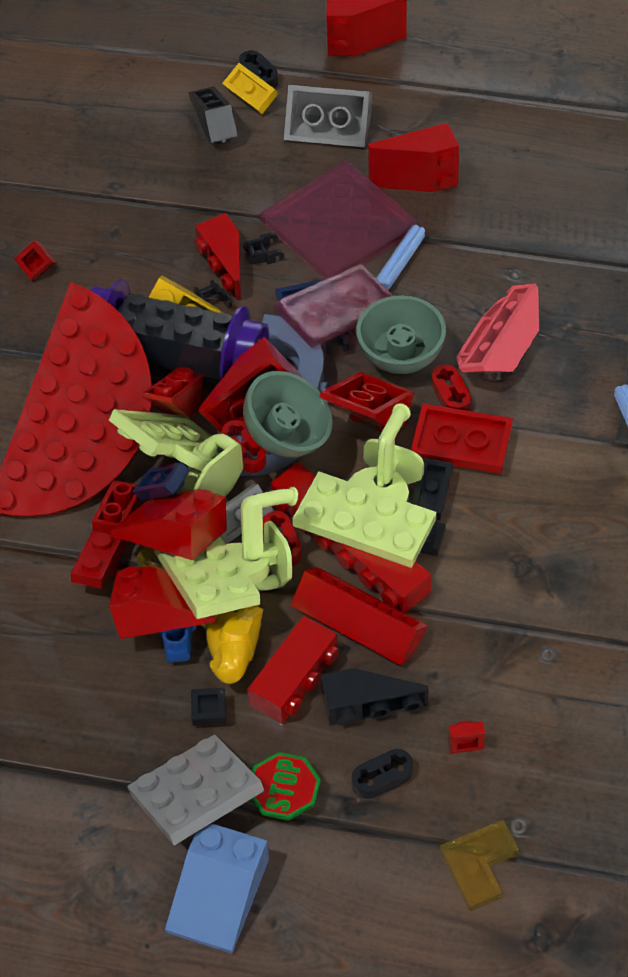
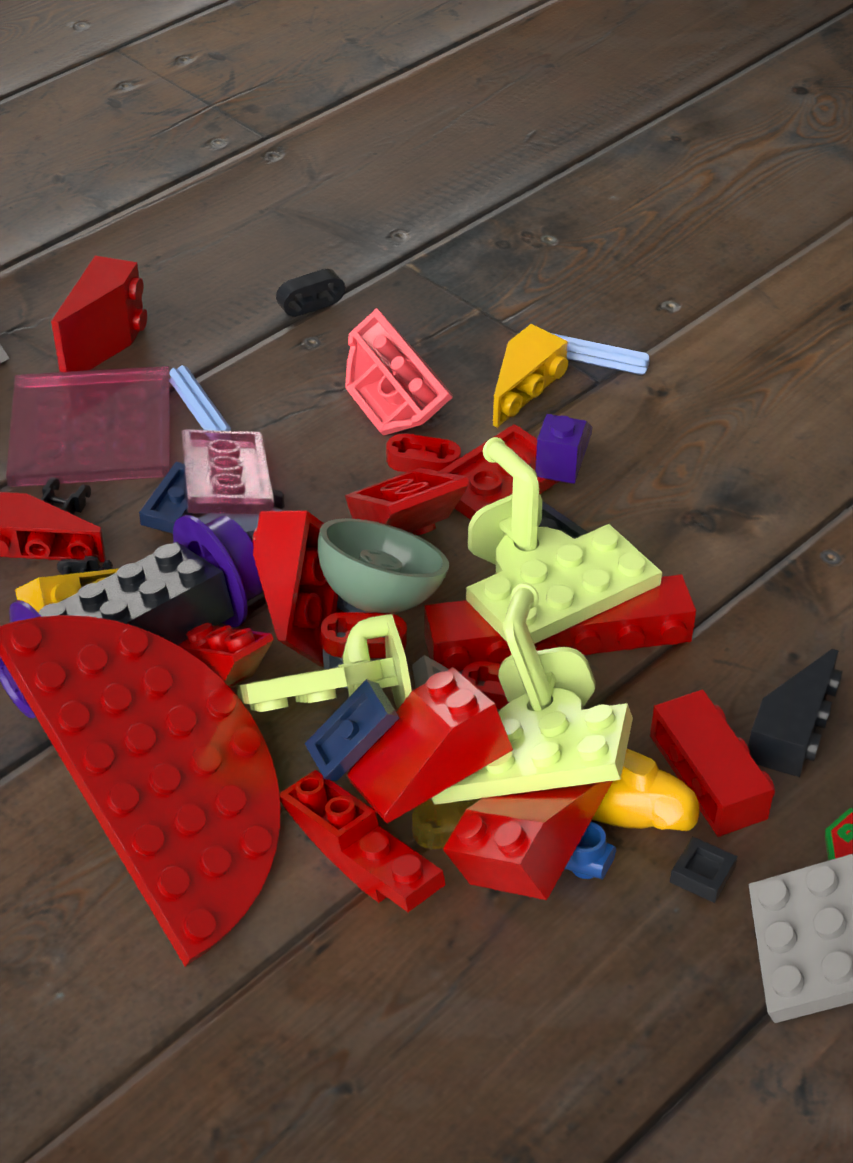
camera: 60 degrees left, 10 degrees down
(358, 615) = (680, 667): red brick -> none
(401, 334) = (329, 439): sand green piece -> none
(501, 451) = (561, 447): none -> dark purple slope
(553, 243) = (310, 292): none -> black beam
(576, 394) = (529, 365): none -> yellow slope

